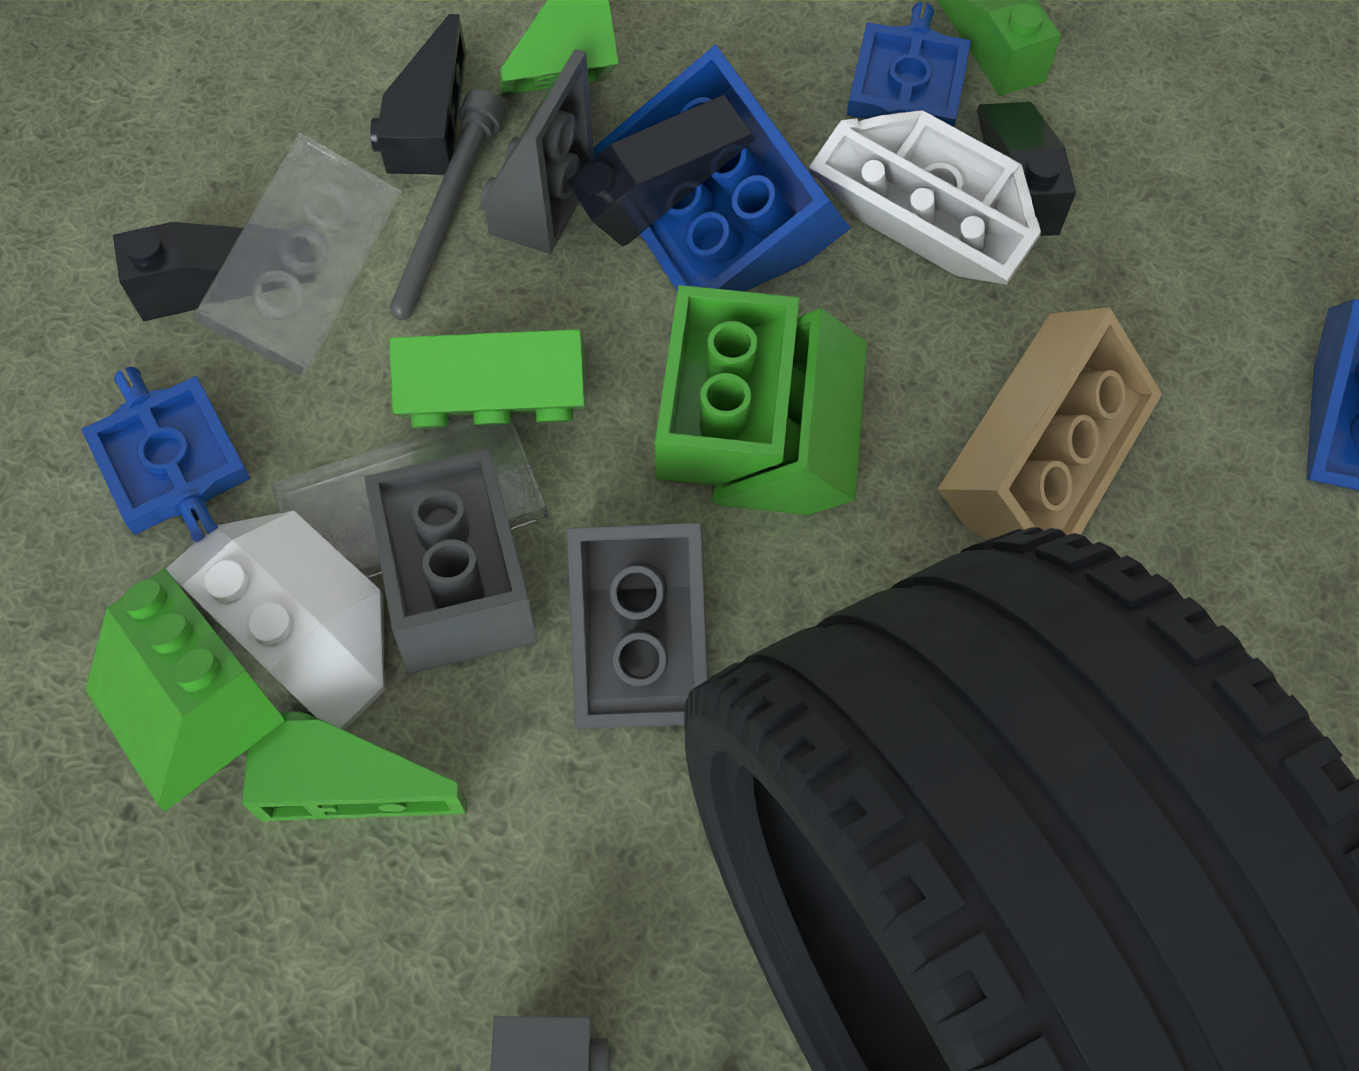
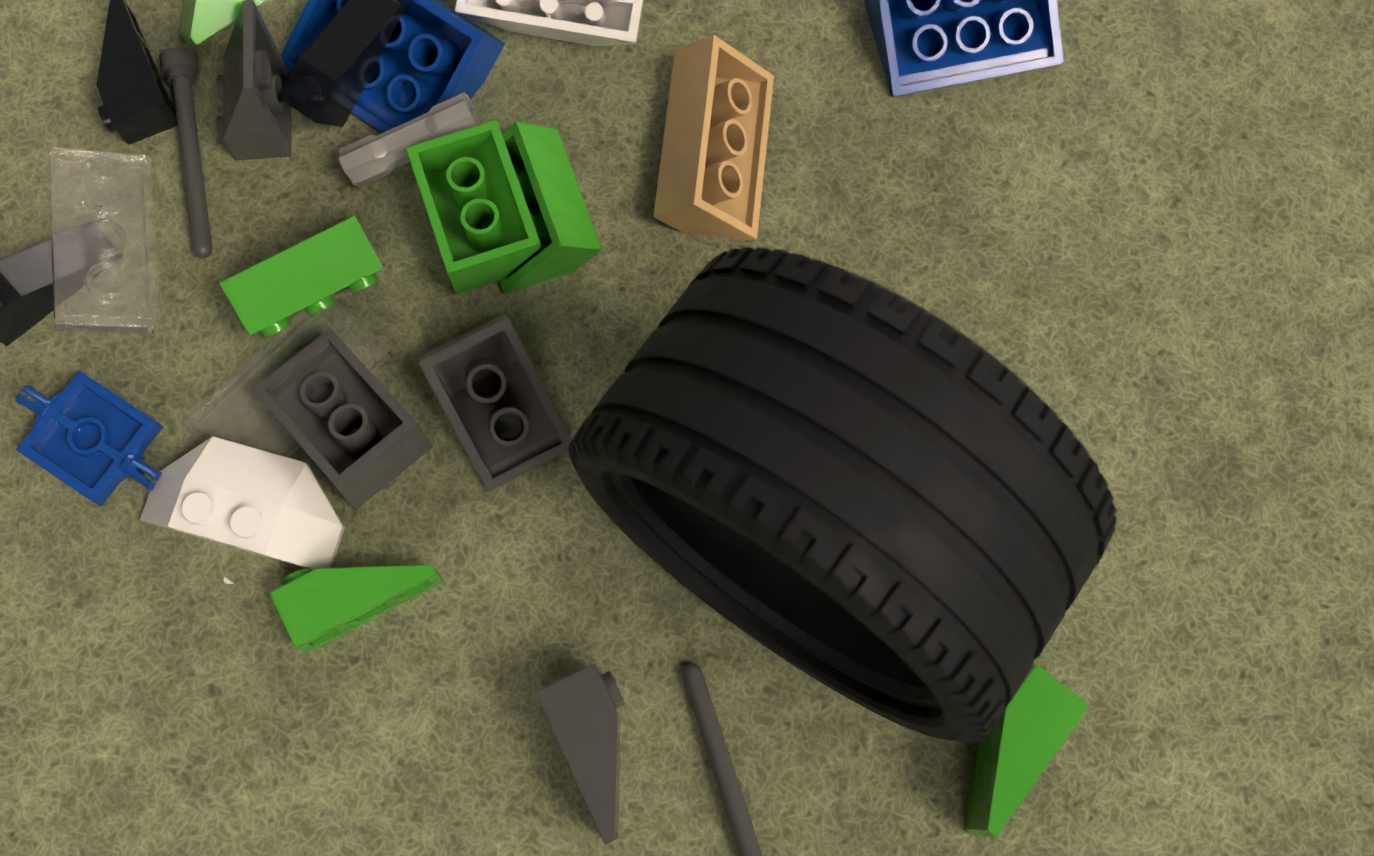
camera: 30 degrees left, 10 degrees up
(173, 690) = (201, 596): bright green slope -> none
(648, 286) = (382, 153): none -> light grey axle

